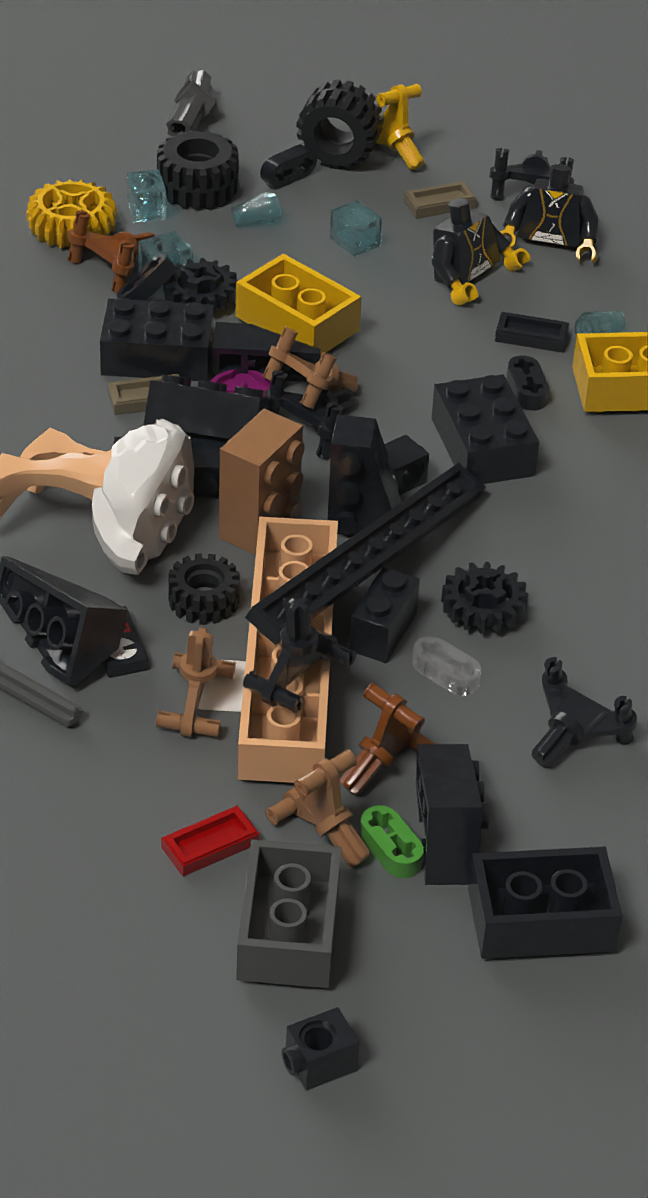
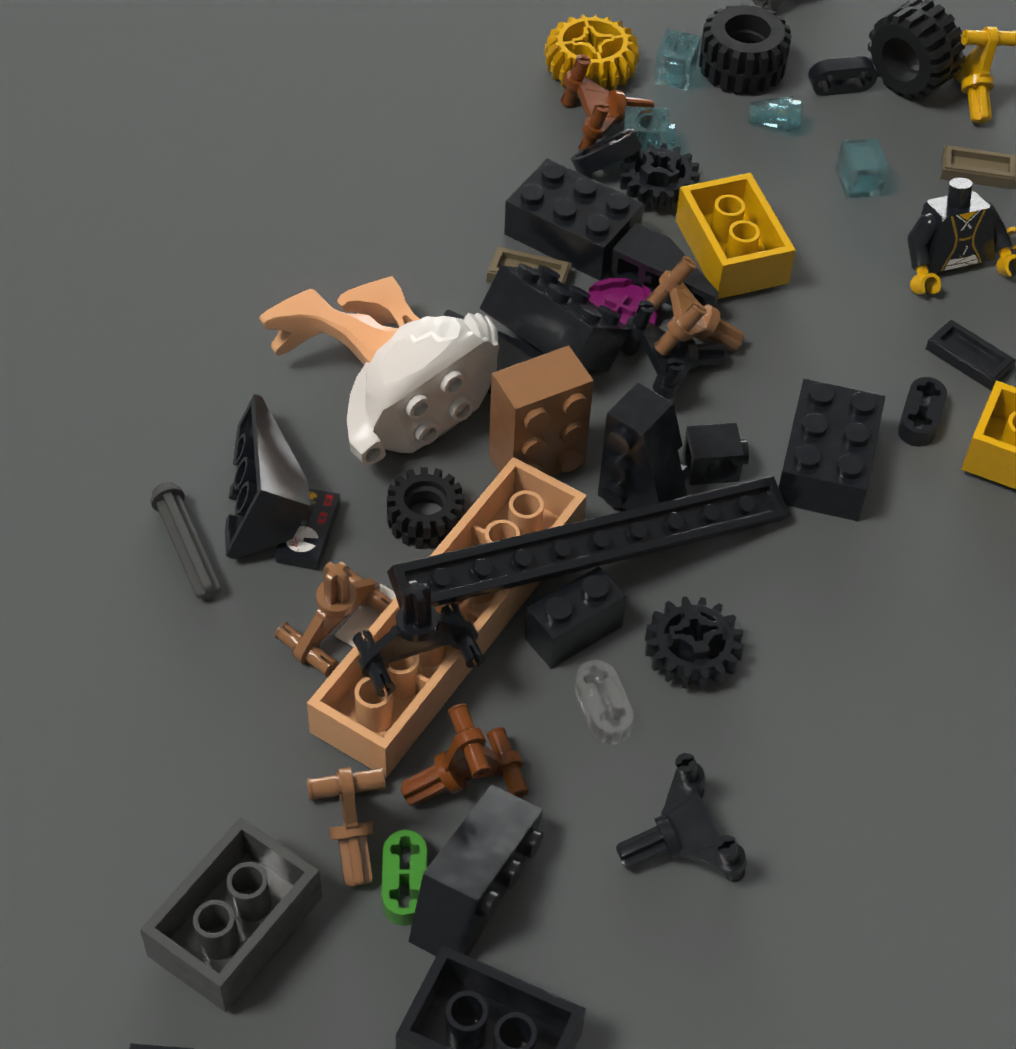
camera: 30 degrees right, 10 degrees up
(209, 840) = (236, 787): red tile -> none

